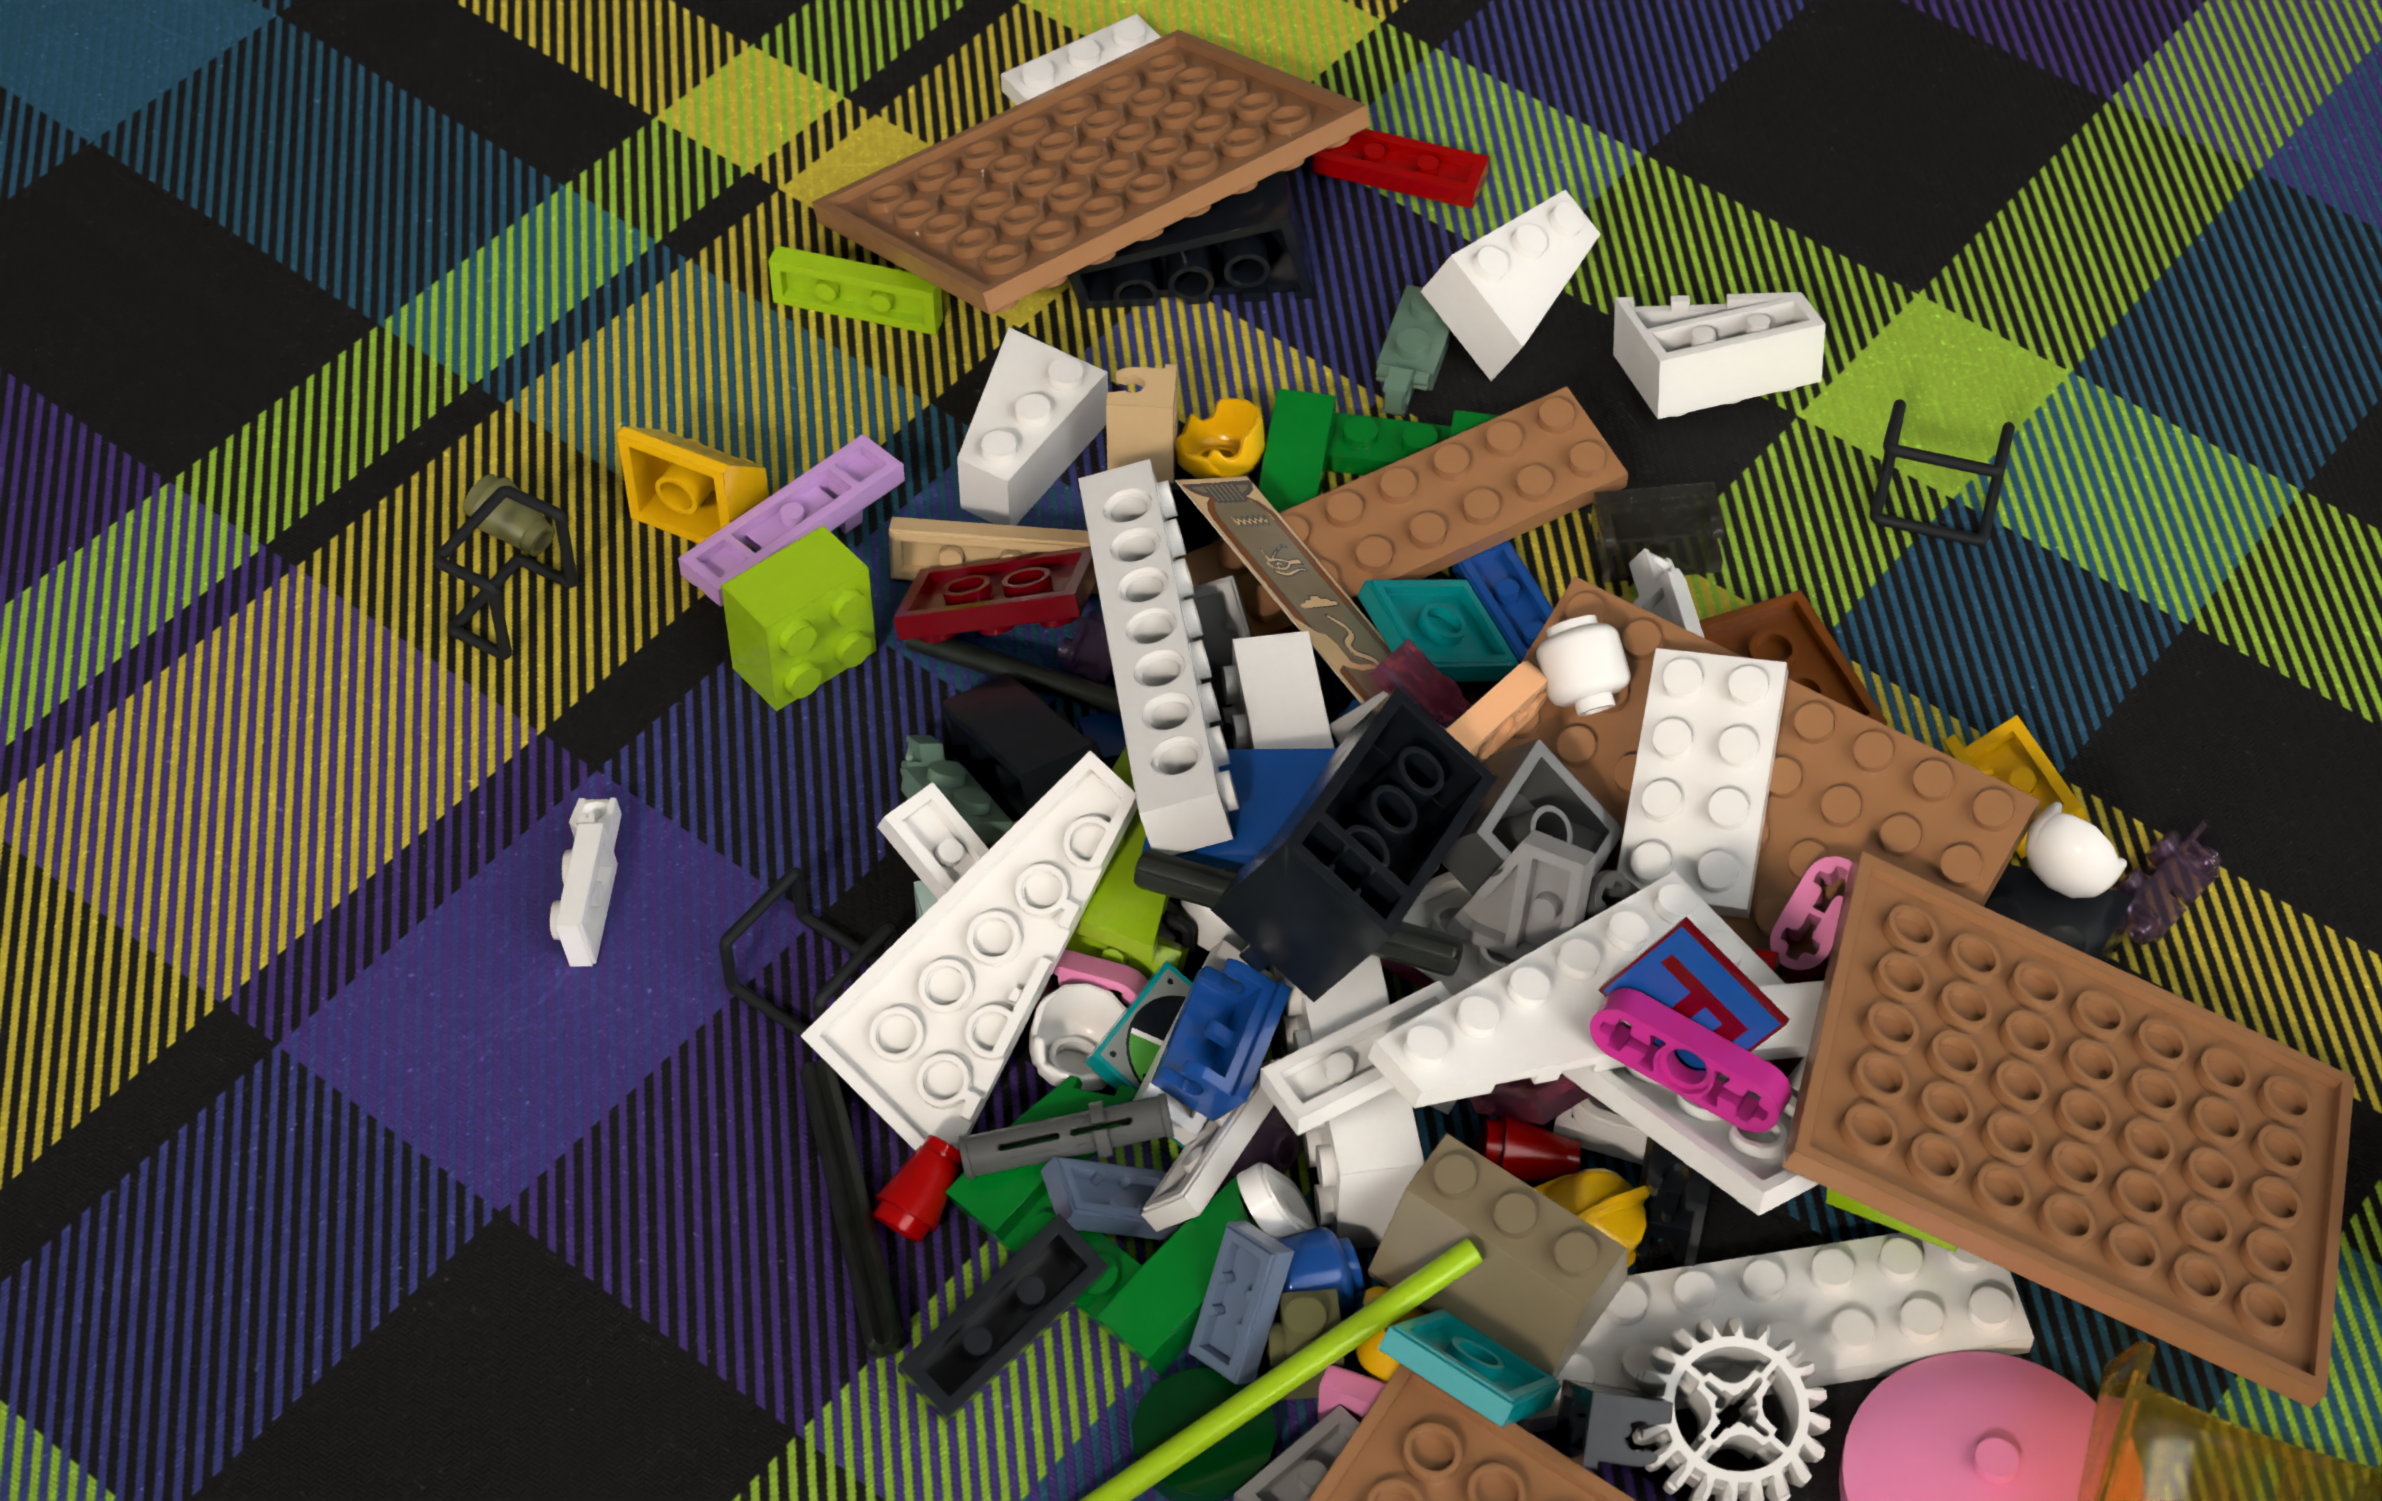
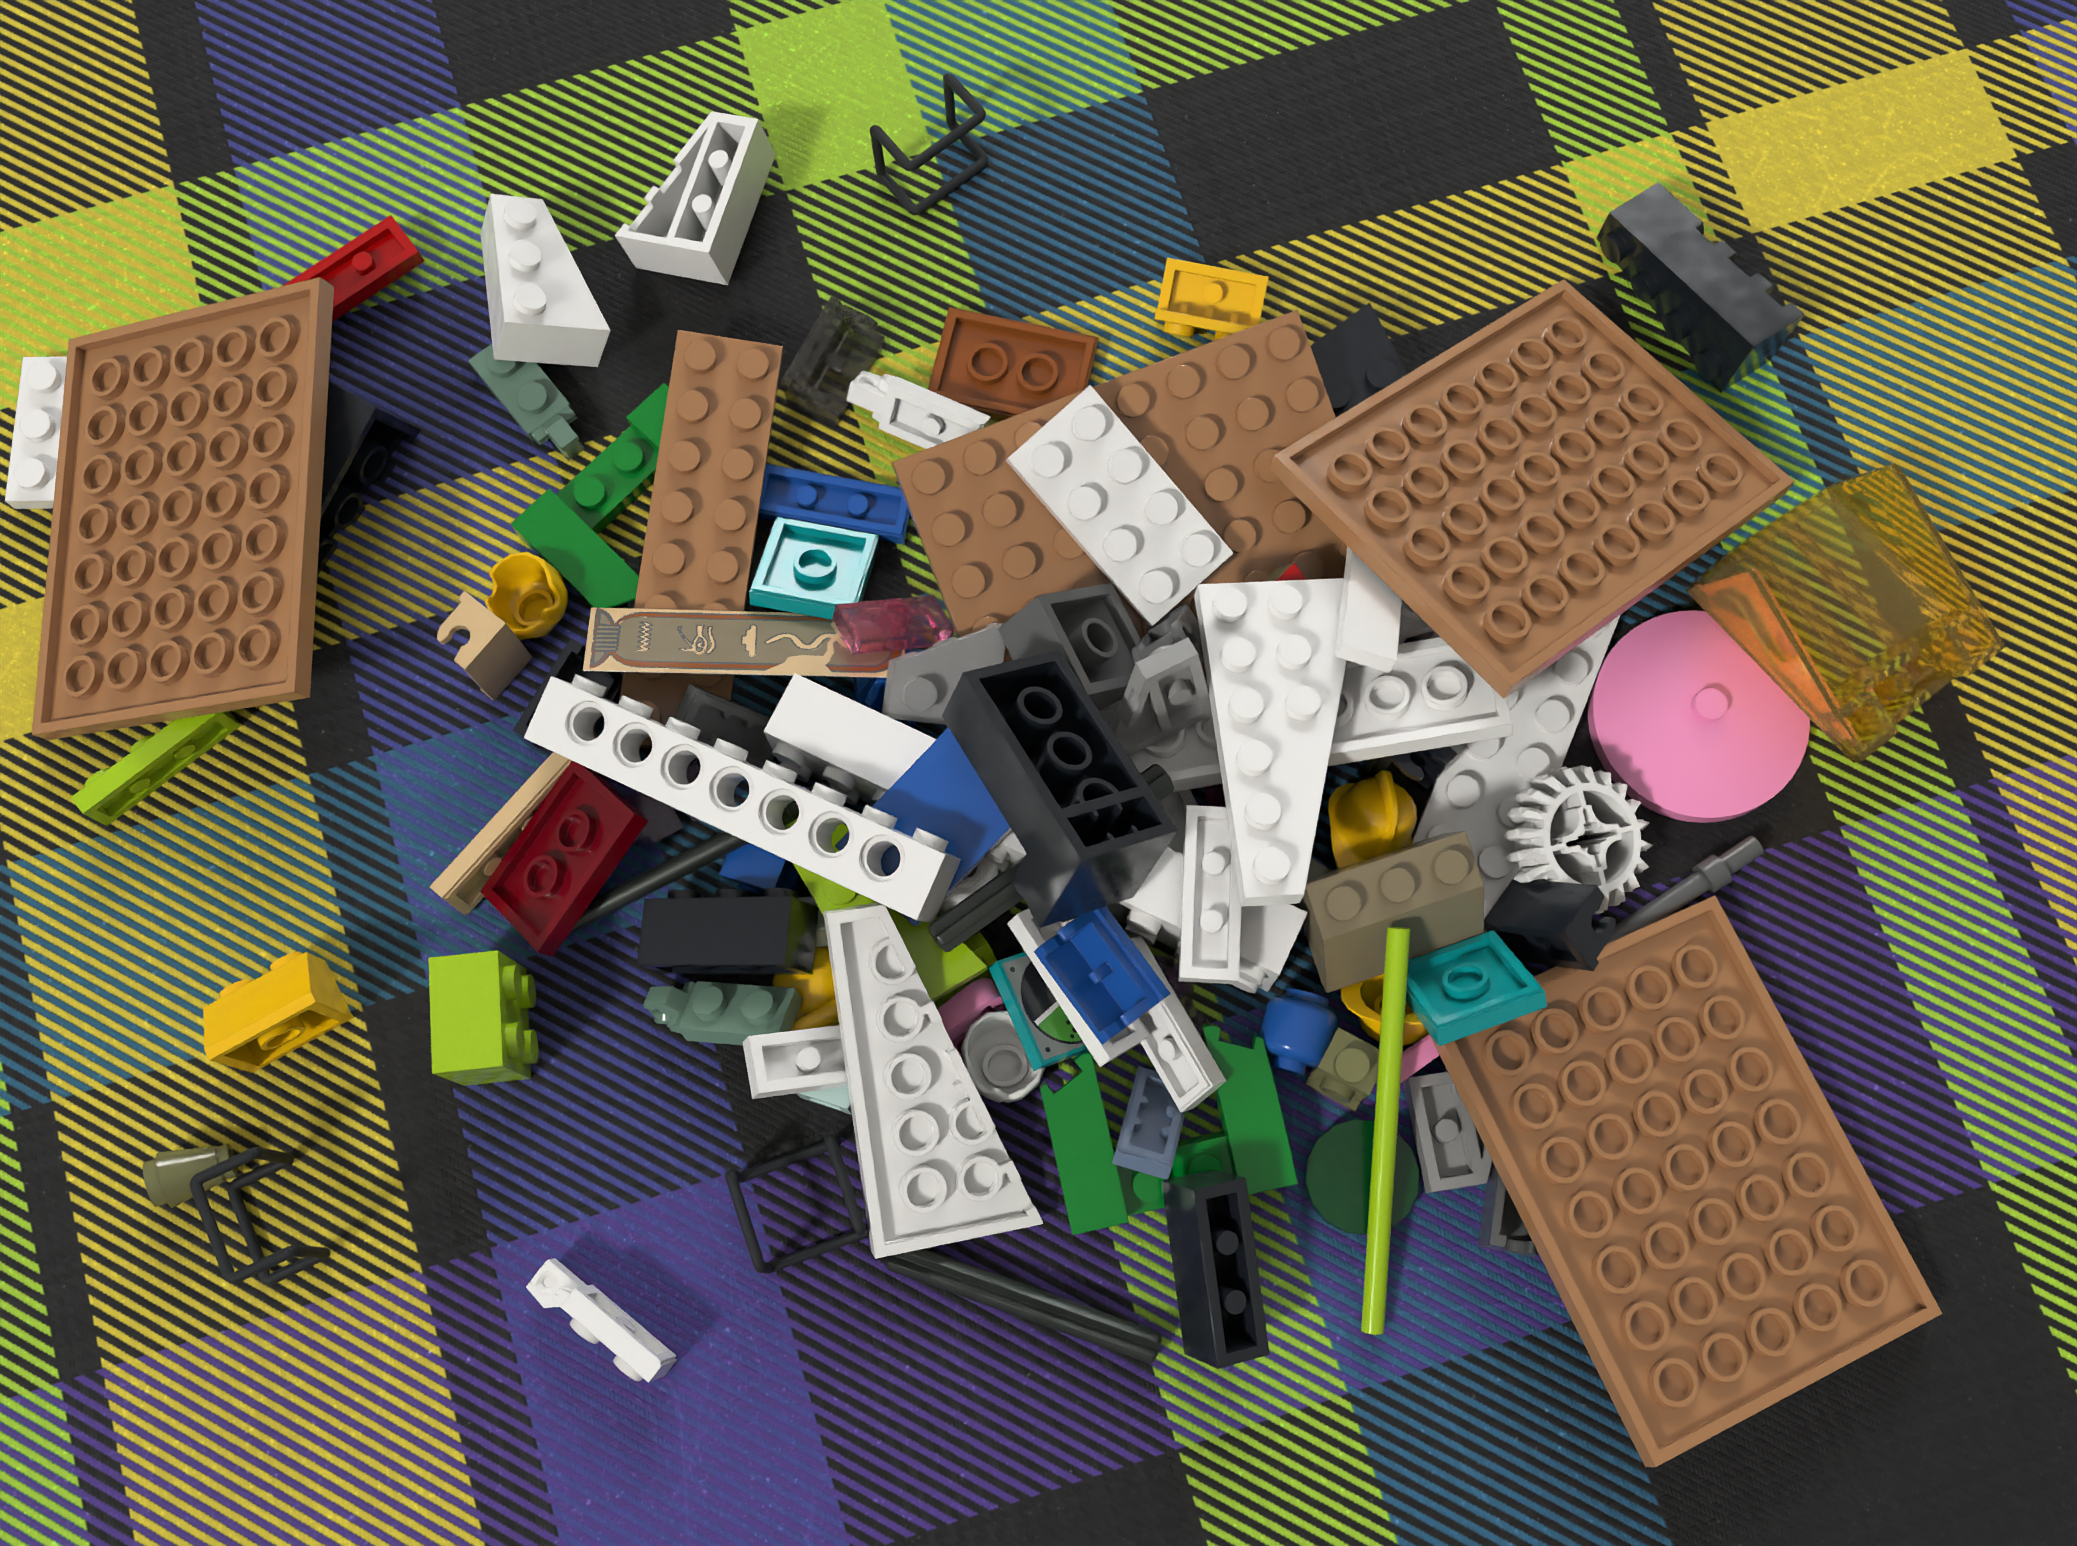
camera: 55 degrees left, 25 degrees up
(824, 495) = (368, 961): lavender hinge -> none
(917, 1192) = (1054, 1251): red cone -> none
(1028, 427) = (404, 724): white wedge -> none
(1149, 1118) = (1103, 1131): dark grey pin -> none
(1240, 1302) = (1307, 1096): sand blue plate -> none
(1275, 1201) = (1240, 1019): white tile -> none
(1501, 711) = (979, 606): light nougat beam -> none
(1583, 664) = (982, 515): white head -> none
(1703, 985) = (1361, 666): blue piece -> none
(1726, 1100) = (1382, 695): dark pink beam -> none
(1802, 912) = (1259, 518): bright pink beam -> none
(2071, 854) = (1338, 322): white hair -> none
(2177, 866) = (1337, 257): hinge -> none

